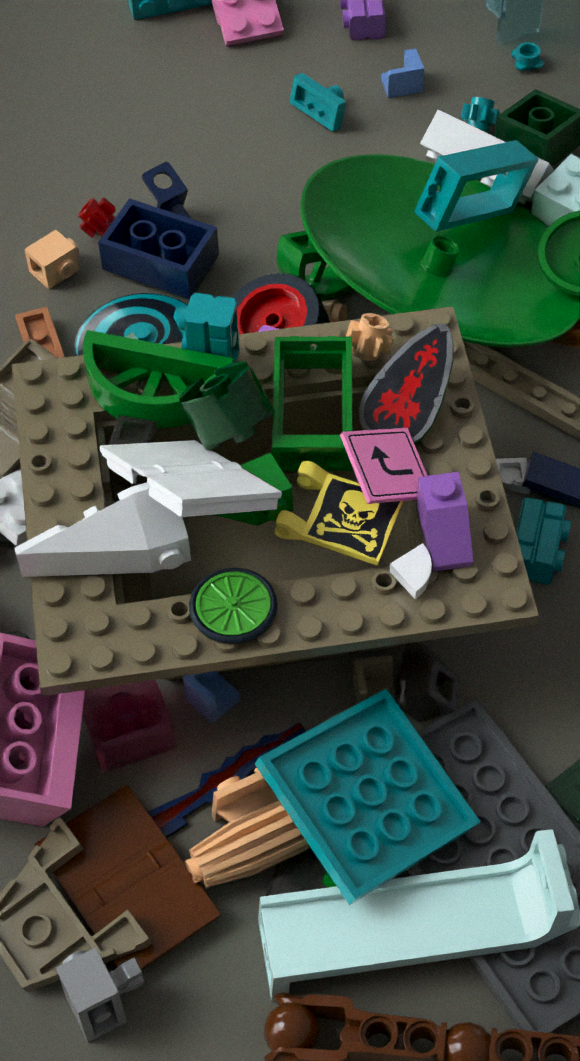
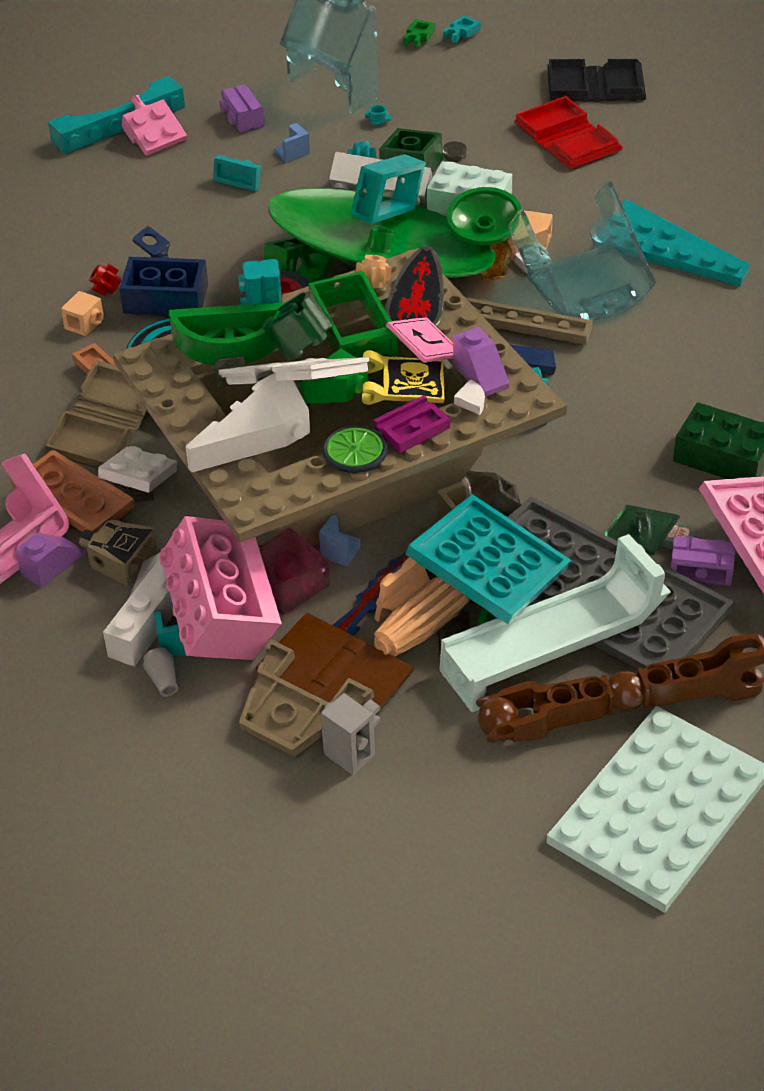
camera: 20 degrees left, 10 degrees down
(320, 589) = (412, 424): none -> magenta plate

